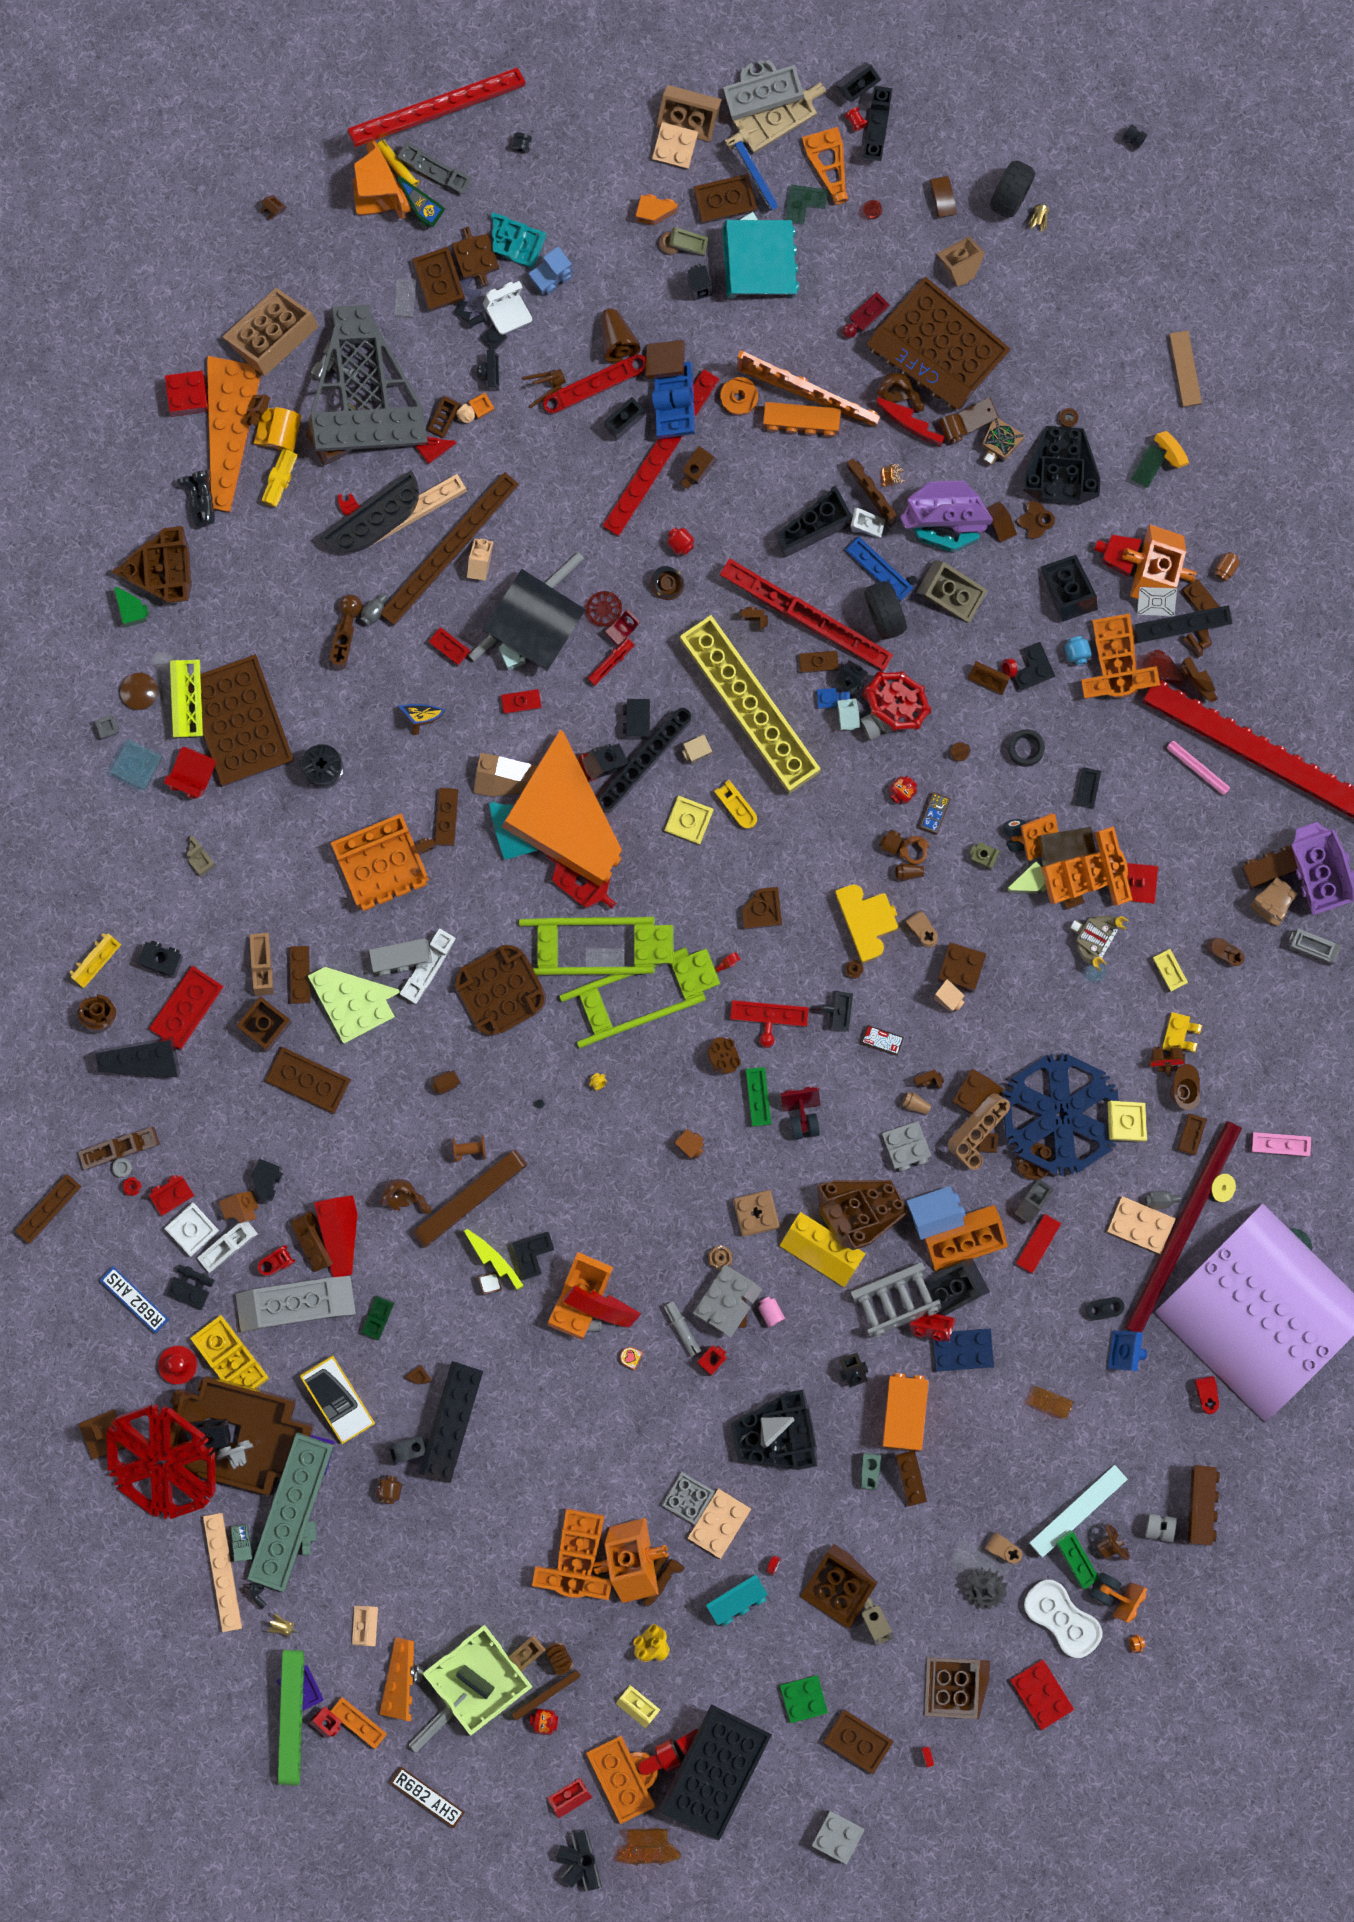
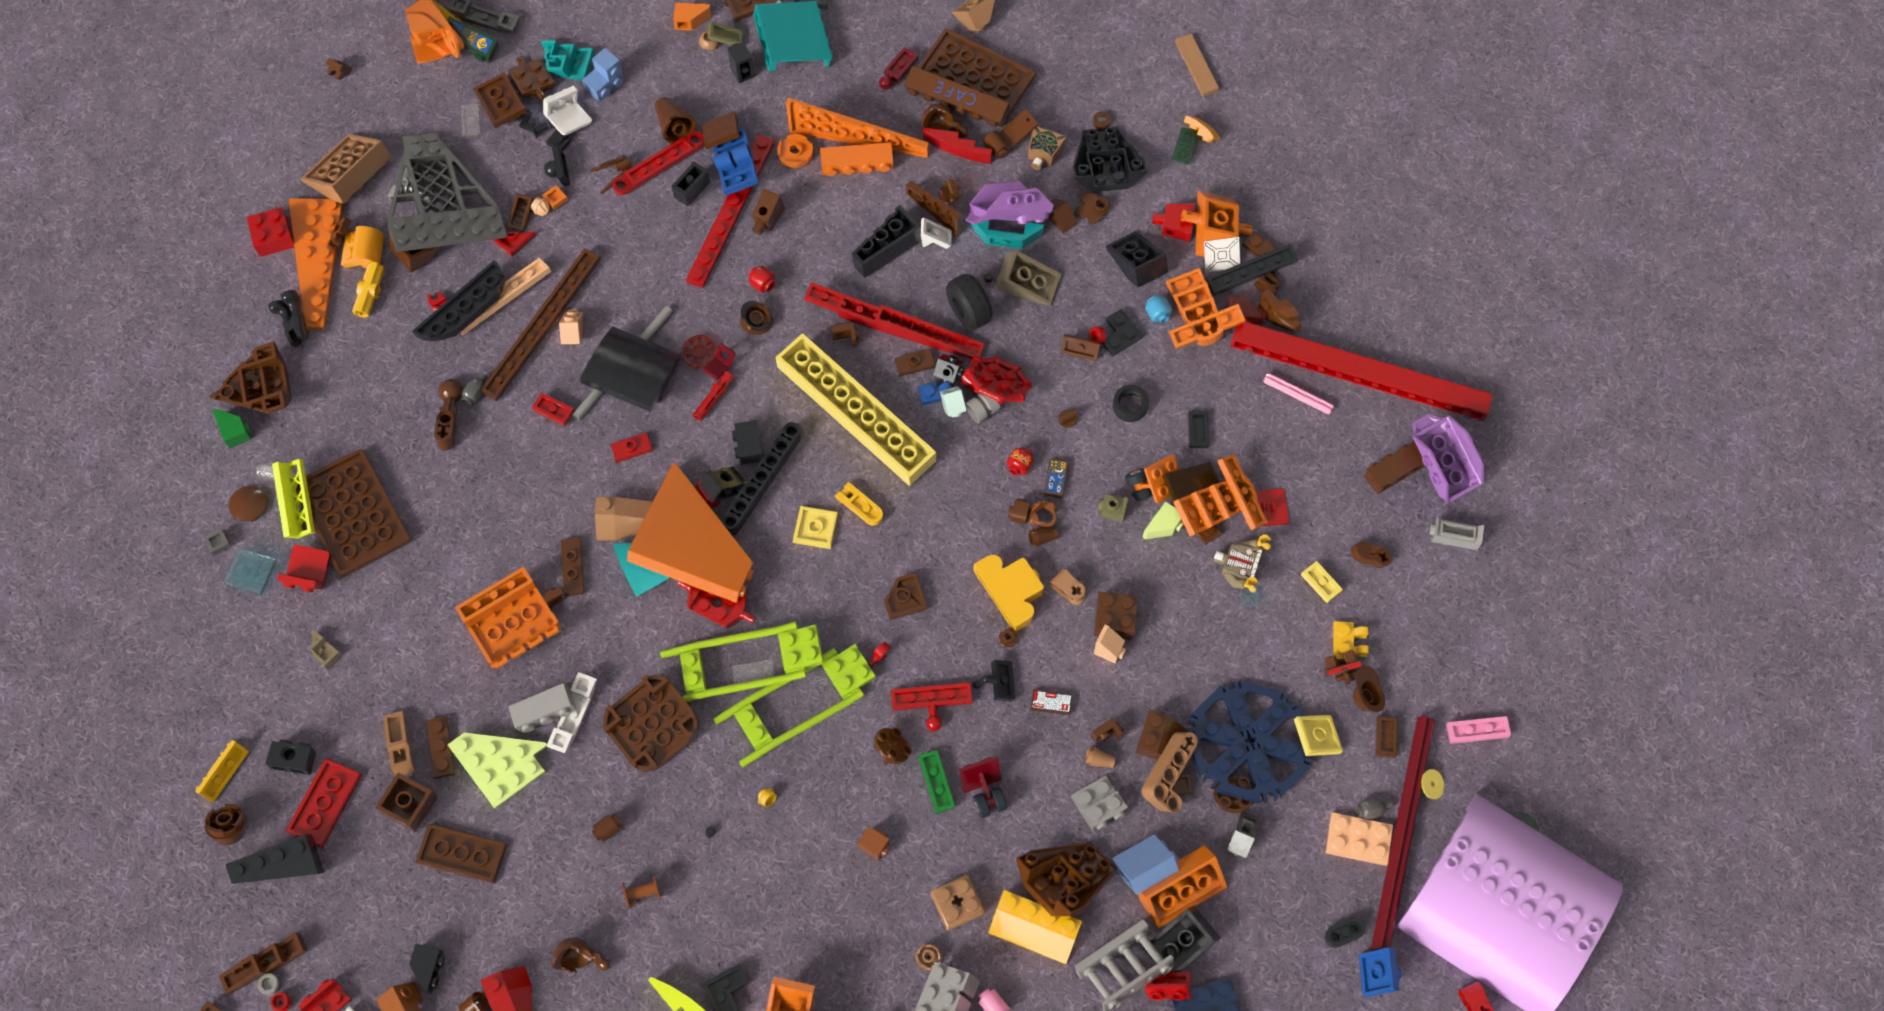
camera: 15 degrees left, 15 degrees down
(330, 774) = (441, 547): black wheel -> none
(420, 714) = (533, 476): shield -> none
(469, 1198) = (650, 943): reddish brown beam -> none
(511, 658) = (615, 407): light aqua brick -> none
(696, 749) = (811, 459): tan brick -> none
(878, 567) = (947, 268): blue tile -> none
(1038, 1243) = (1258, 878): red tile -> none
(1227, 566) = (1278, 216): dark orange brick -> none
(1274, 902) = (1406, 499): medium nougat piece -> none

